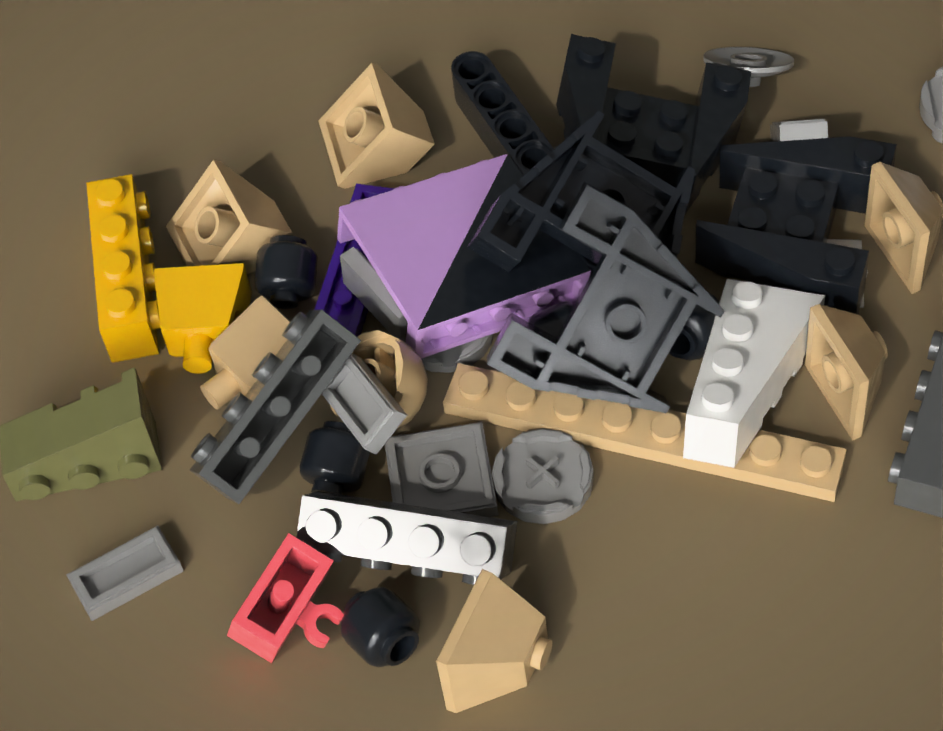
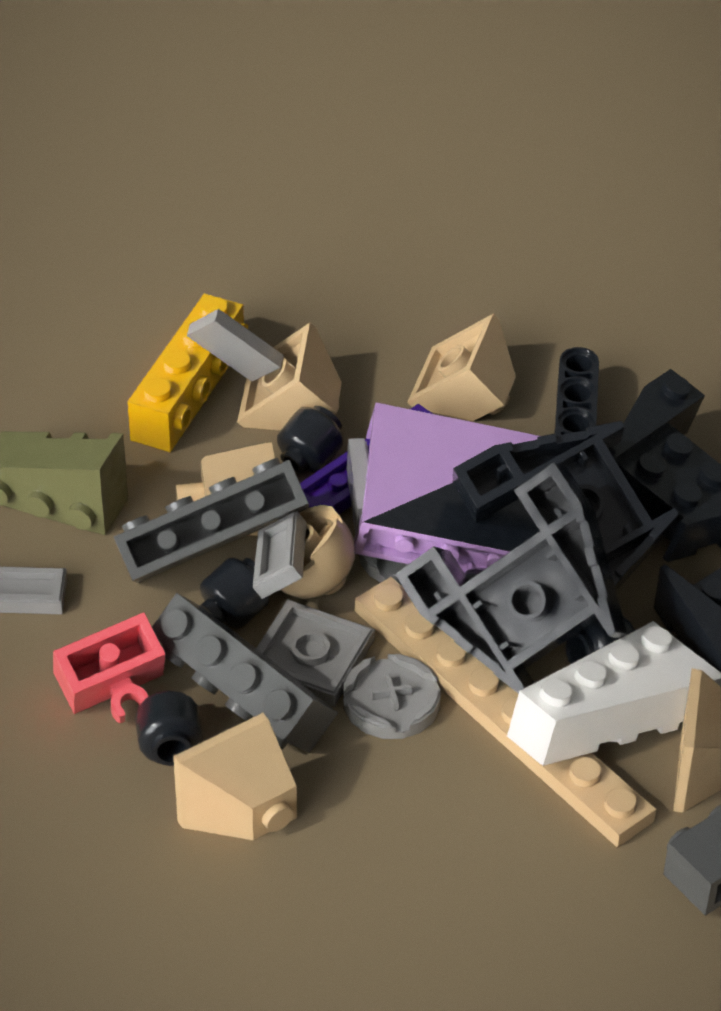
camera: 25 degrees right, 10 degrees down
(159, 219) = (235, 345): none -> light grey tile
(198, 307) = (220, 423): yellow torso -> none

